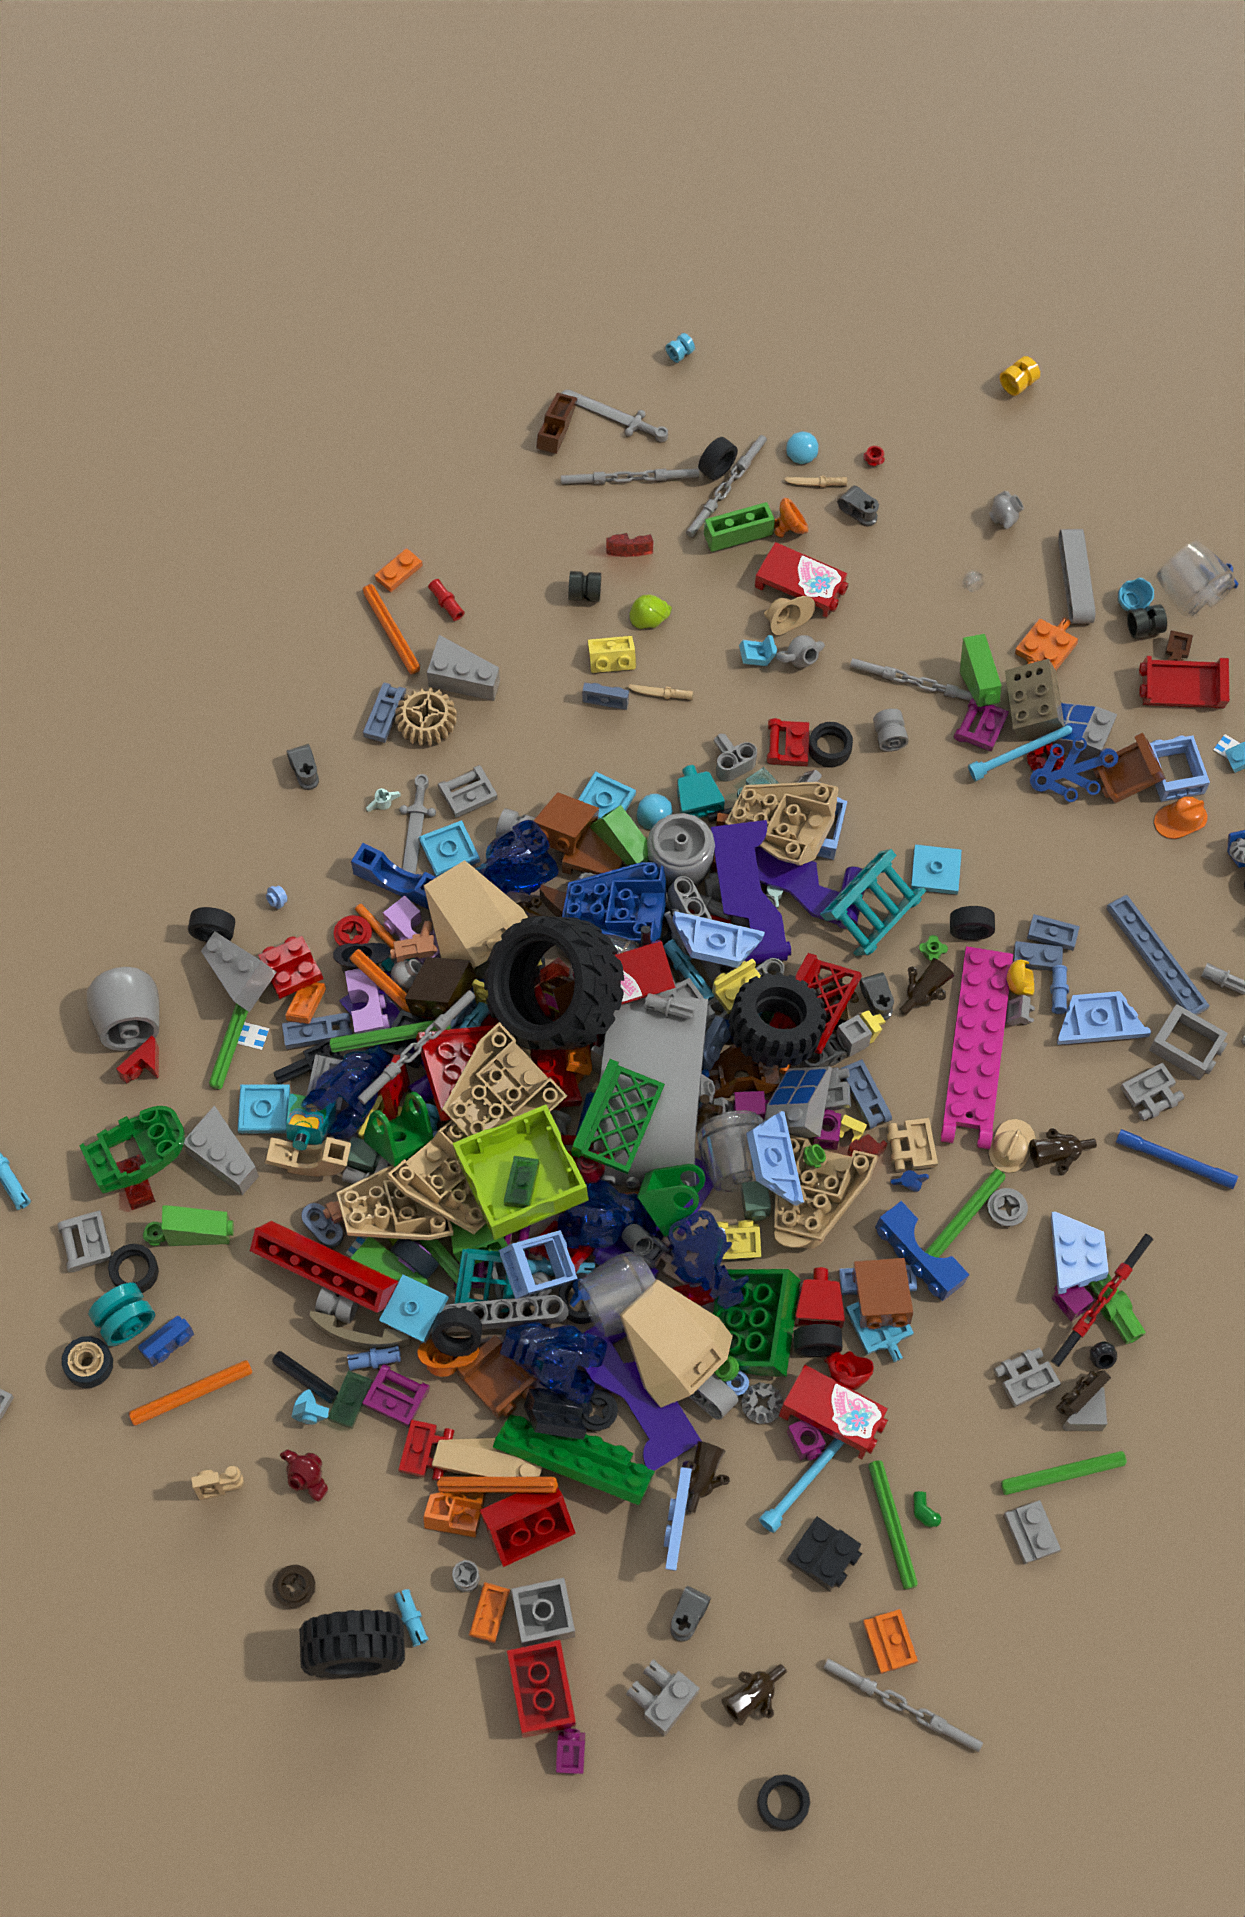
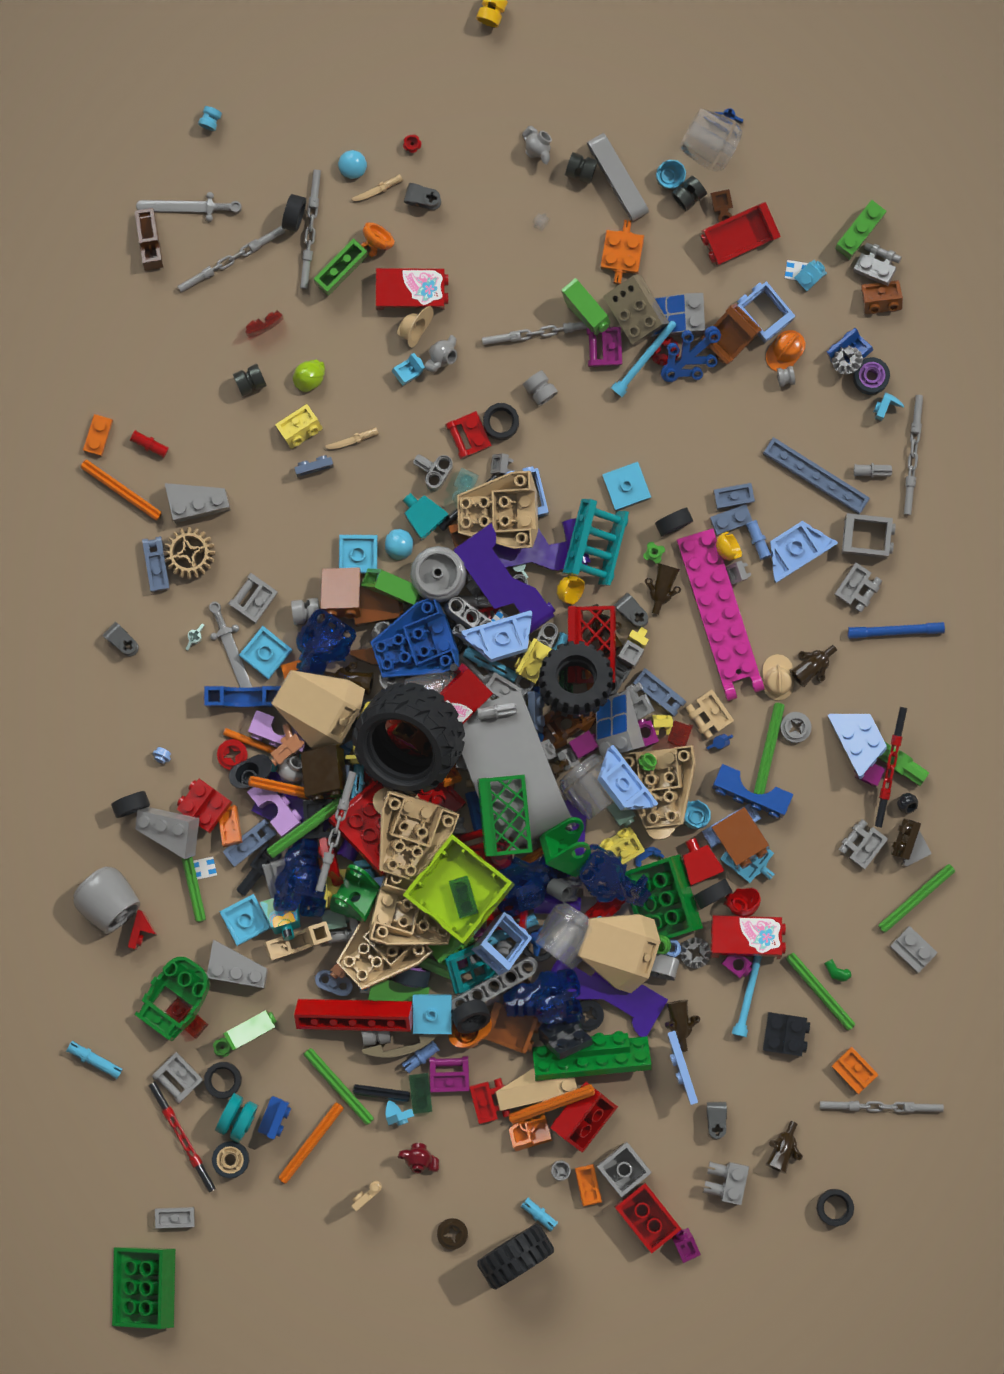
camera: 25 degrees left, 20 degrees up
(48, 1343) = (194, 1160): none -> piece
(260, 1345) = (338, 1086): none -> bright green axle
(760, 1262) = (648, 852): none -> blue piece
(820, 939) = (570, 589): none -> yellow hair
(841, 1244) = (697, 815): none -> medium azure hair
(1039, 547) = (581, 167): none -> pearl dark grey wheel
(1170, 840) = (786, 376): none -> light grey wheel

